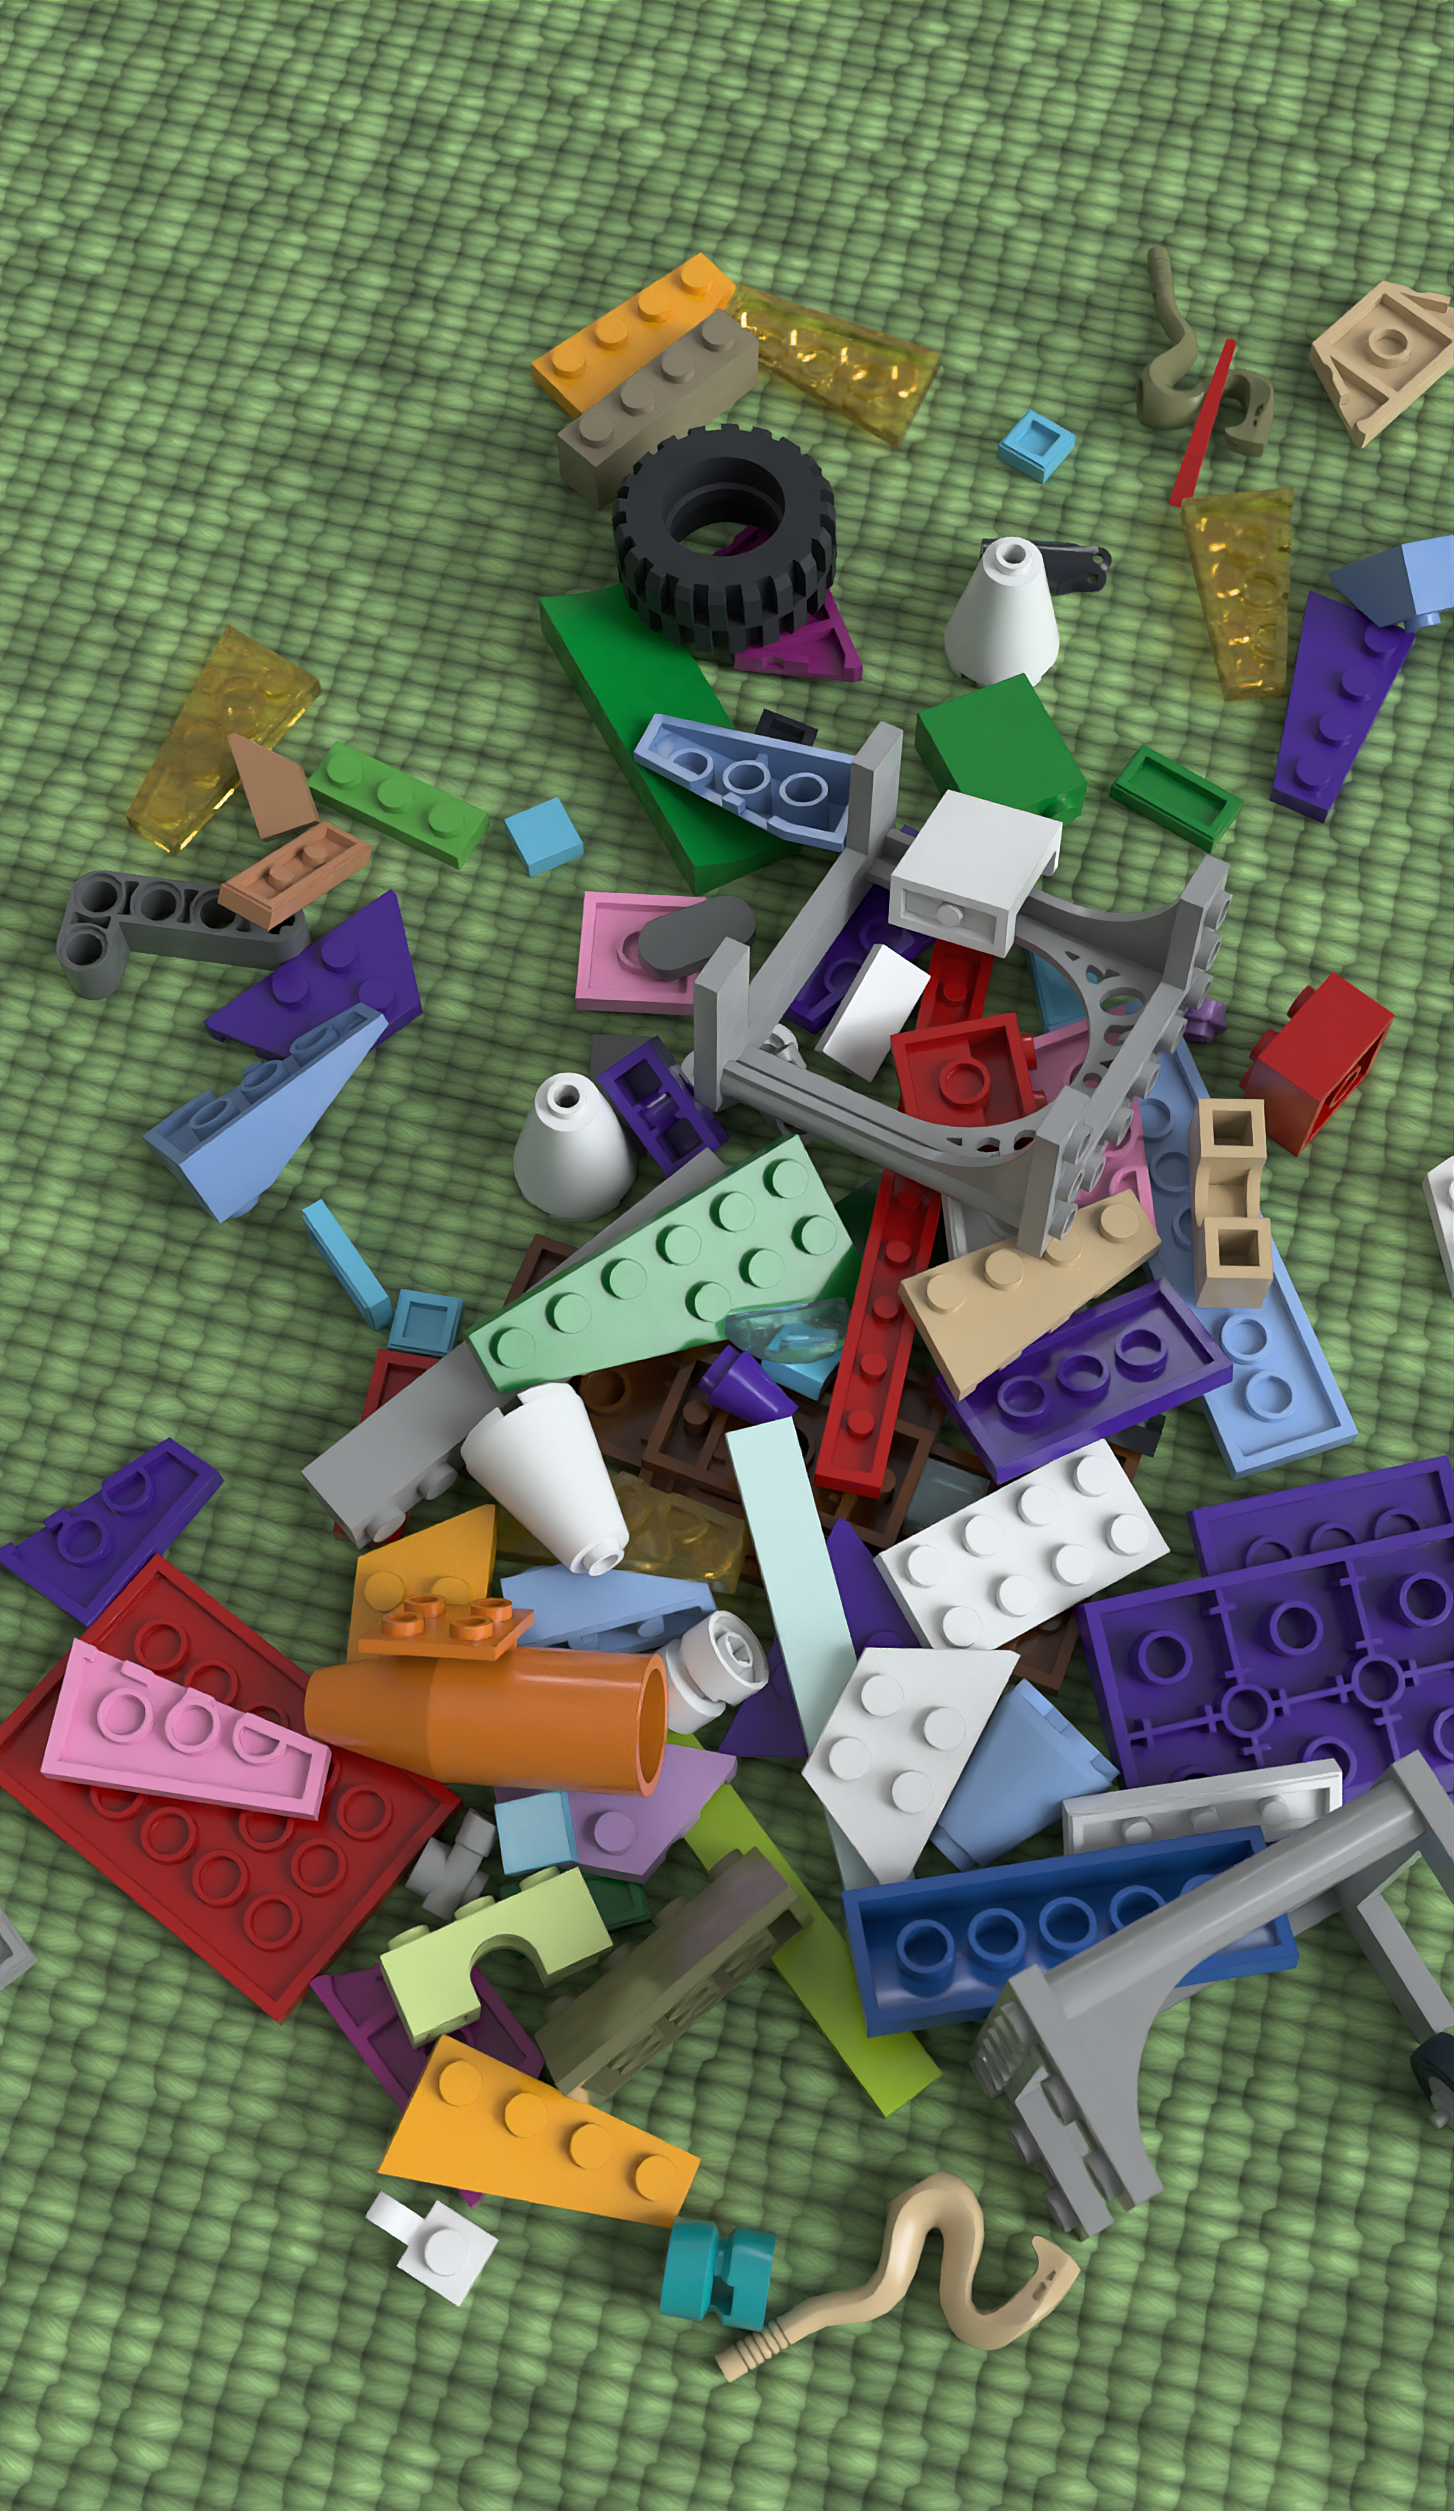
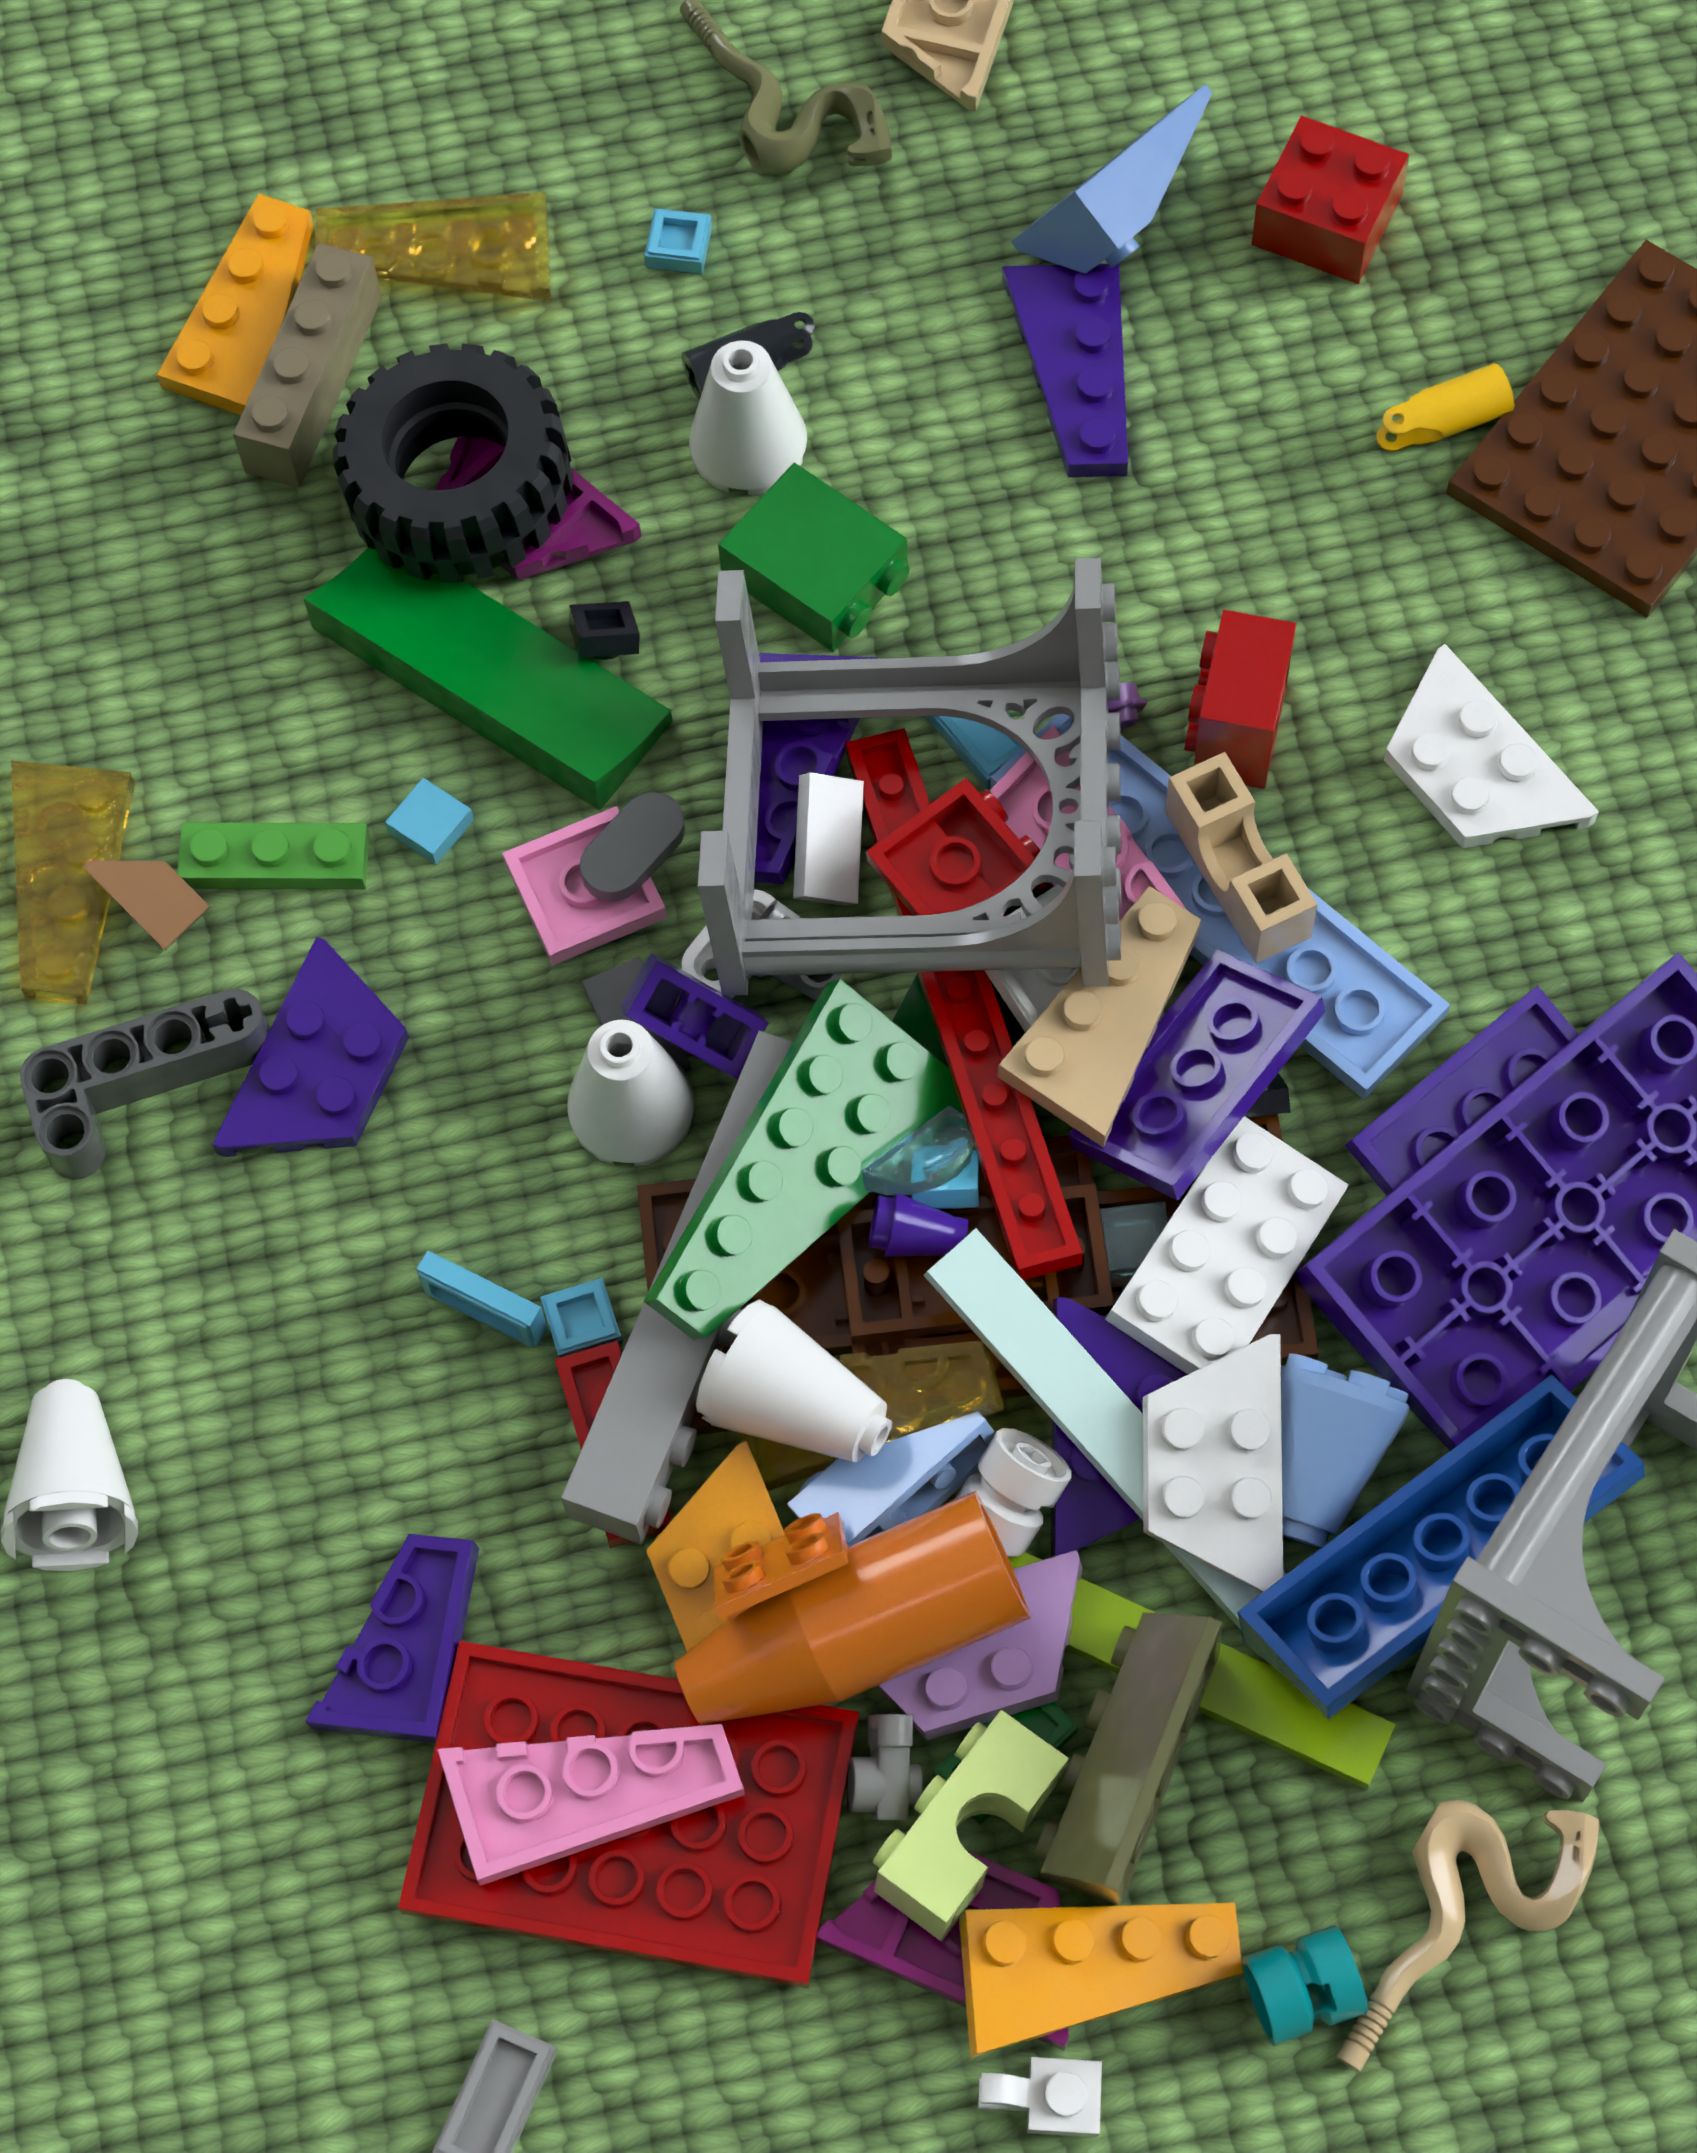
camera: 25 degrees left, 0 degrees up
(241, 1141) = (322, 1220): medium blue wedge -> none
(294, 875) = (226, 966): nougat tile -> none
(536, 1833) = (946, 1702): medium azure tile -> none
(765, 780) = (630, 671): medium blue wedge -> none
(972, 872) = (858, 668): white panel -> none
(1176, 798) = (985, 514): green tile -> none
(1196, 449) = (832, 194): red sticker -> none
(1243, 583) = (930, 274): clear yellow wing -> none
(1274, 1798) = (1557, 1345): white tile -> none

